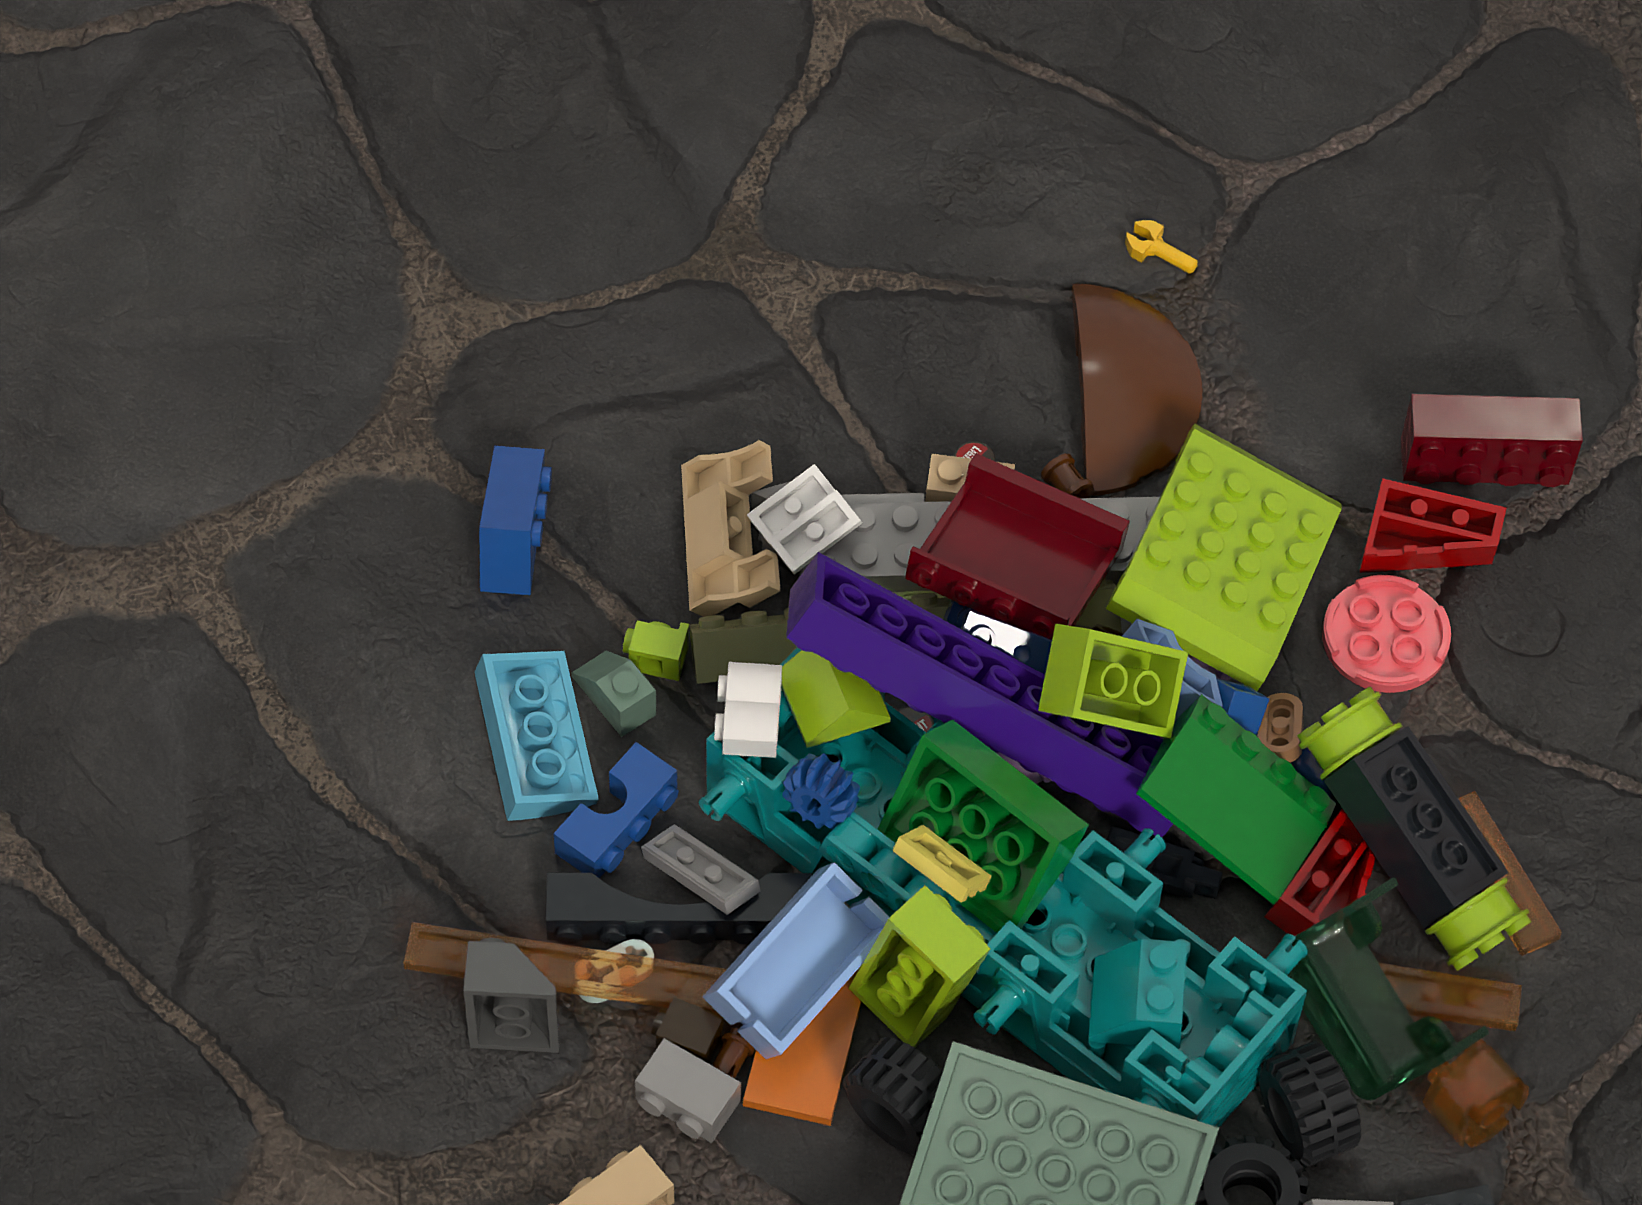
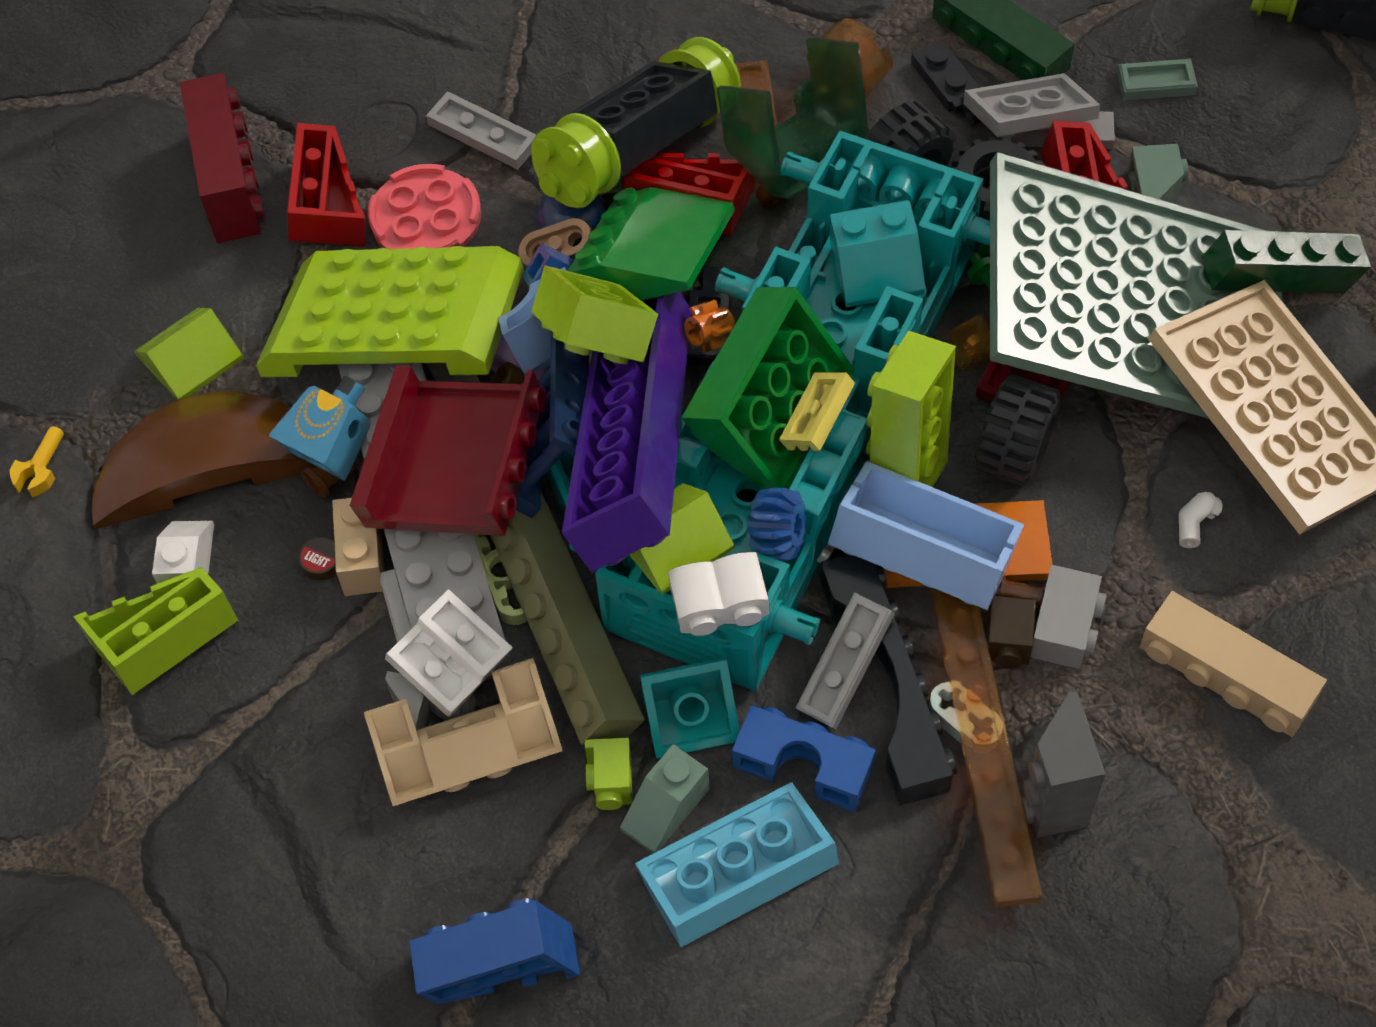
camera: 100 degrees left, 0 degrees up
(687, 725) = (690, 706): none -> teal slope
(926, 308) = (159, 628): none -> lime wedge
(1009, 347) = (182, 549): none -> white slope
(1089, 463) = (325, 427): none -> dark azure torso
(1113, 823) = (709, 326): none -> orange gear
(1255, 387) = (190, 353): none -> lime slope
(1483, 707) = (481, 130): none -> light grey plate

